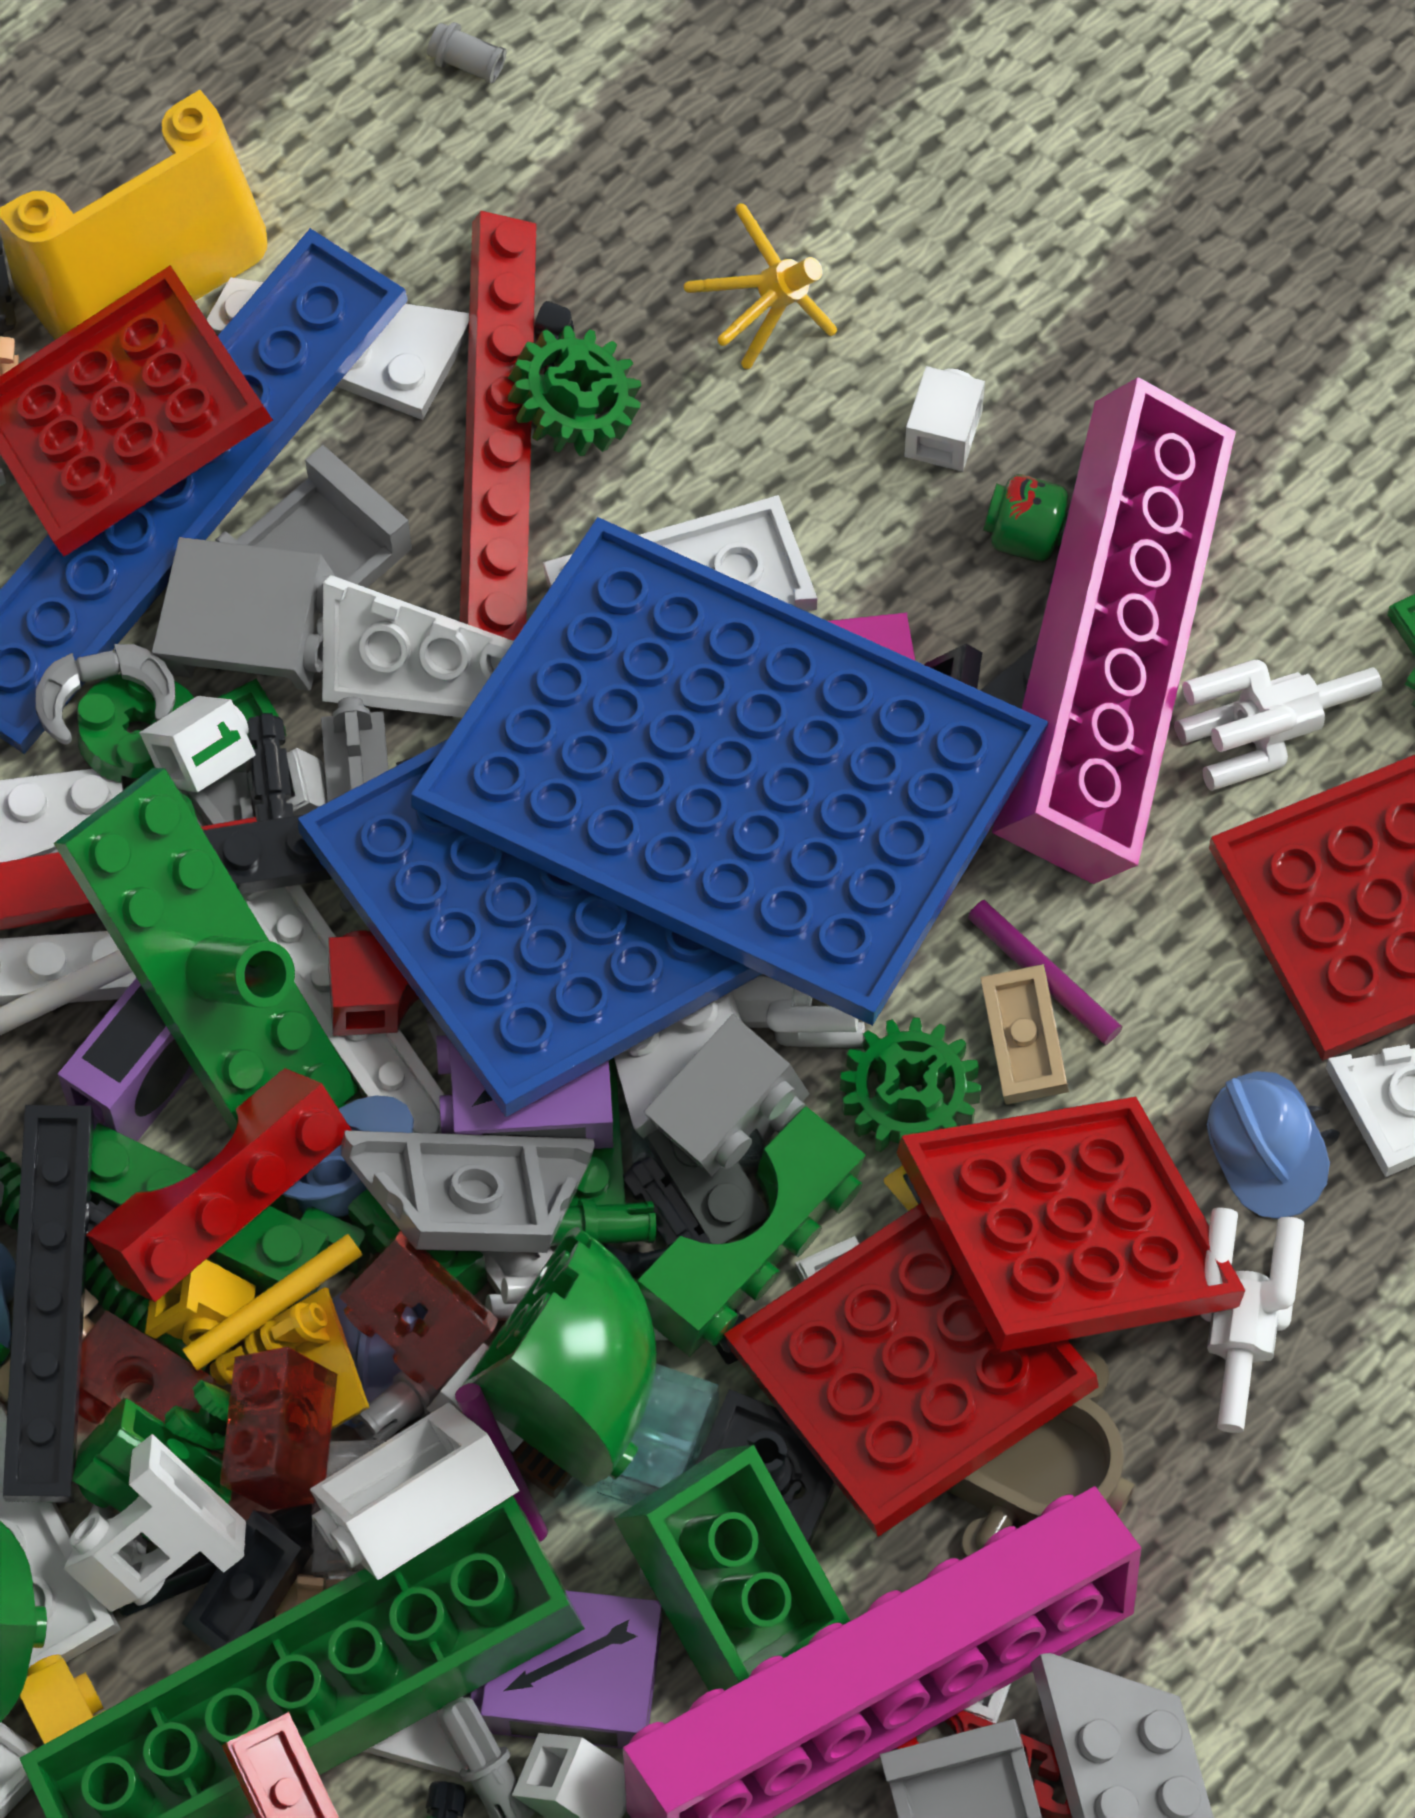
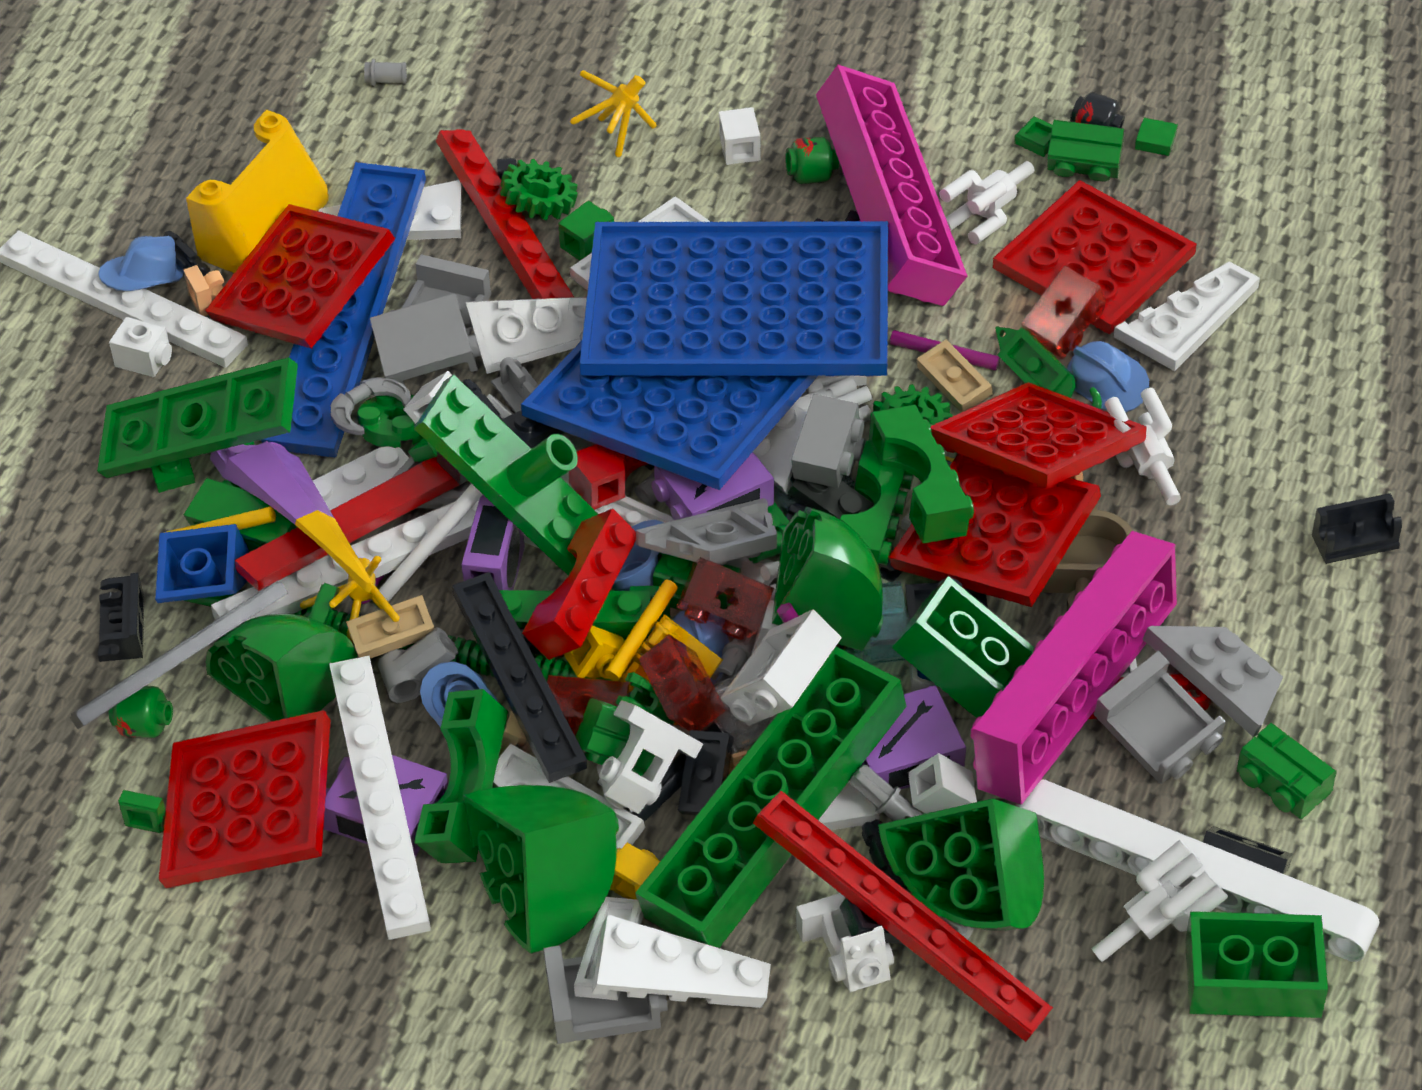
camera: 25 degrees left, 15 degrees down
(611, 492) = (578, 228): none -> green brick
(828, 1290) = (906, 442): none -> green arch
(1166, 1076) = (1036, 364): none -> green plate
(1224, 1001) = (1065, 312): none -> clear red brick

